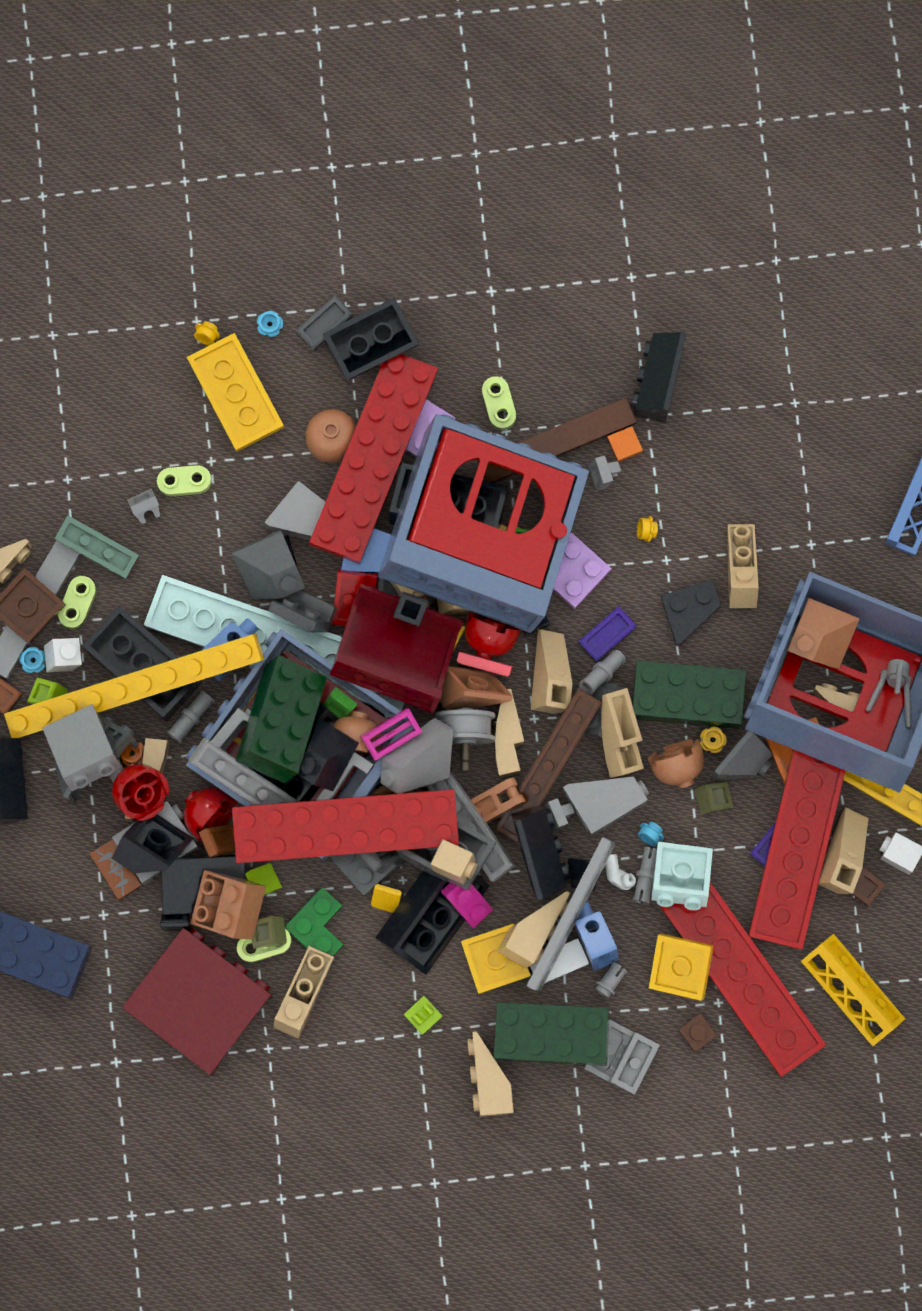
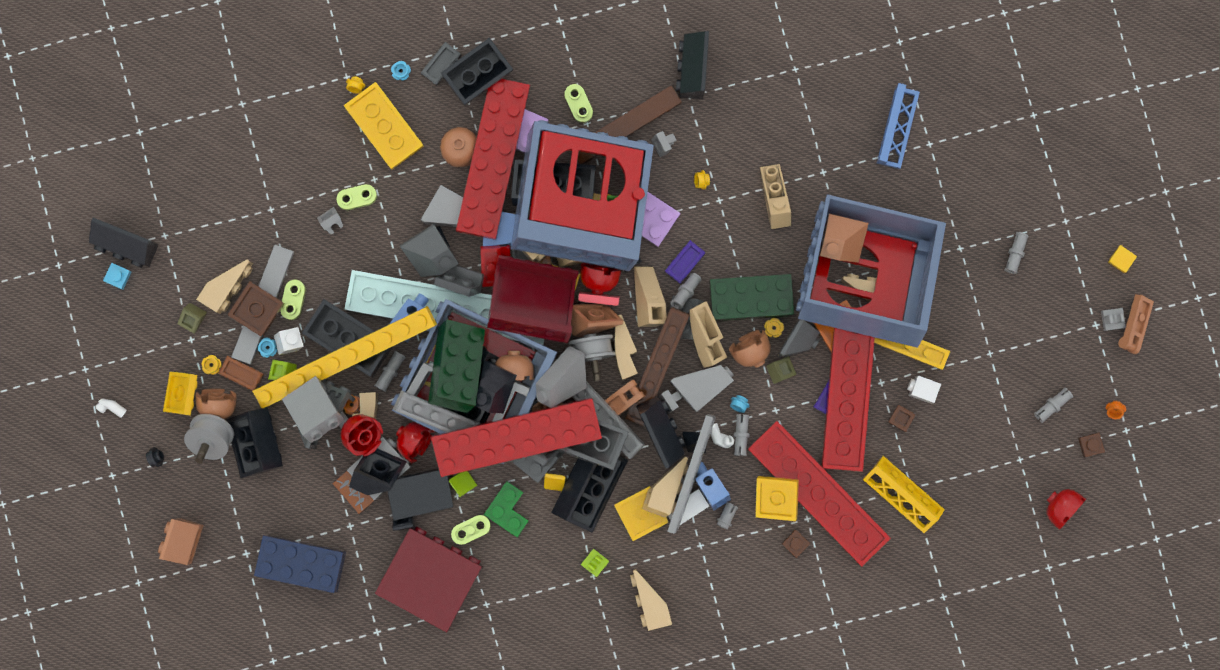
camera: 10 degrees left, 5 degrees up
(96, 547) = (299, 257): sand green plate -> none
(218, 840) = (425, 460): dark orange tile -> none
(228, 905) = (440, 506): nougat slope -> none
(269, 932) = (472, 521): olive slope -> none
(303, 992) = (505, 560): tan slope -> none
(339, 703) = (497, 346): bright green tile -> none
(386, 724) = (535, 357): dark pink tile -> none
(410, 608) = (538, 268): black slope -> none
(454, 862) = (600, 452): tan brick -> none
(467, 903) = (617, 478): dark pink plate -> none
(552, 1034) = (691, 562): dark green brick -> none
(625, 444) = (675, 119): orange tile -> none
(627, 1058) = (743, 570): light grey slope -> none
(682, 875) = (767, 432): light aqua plate -> none
(689, 608) = (742, 233): black wing -> none
(845, 853) = (883, 396): tan slope -> none
(897, 677) = (901, 261): light grey plant -> none

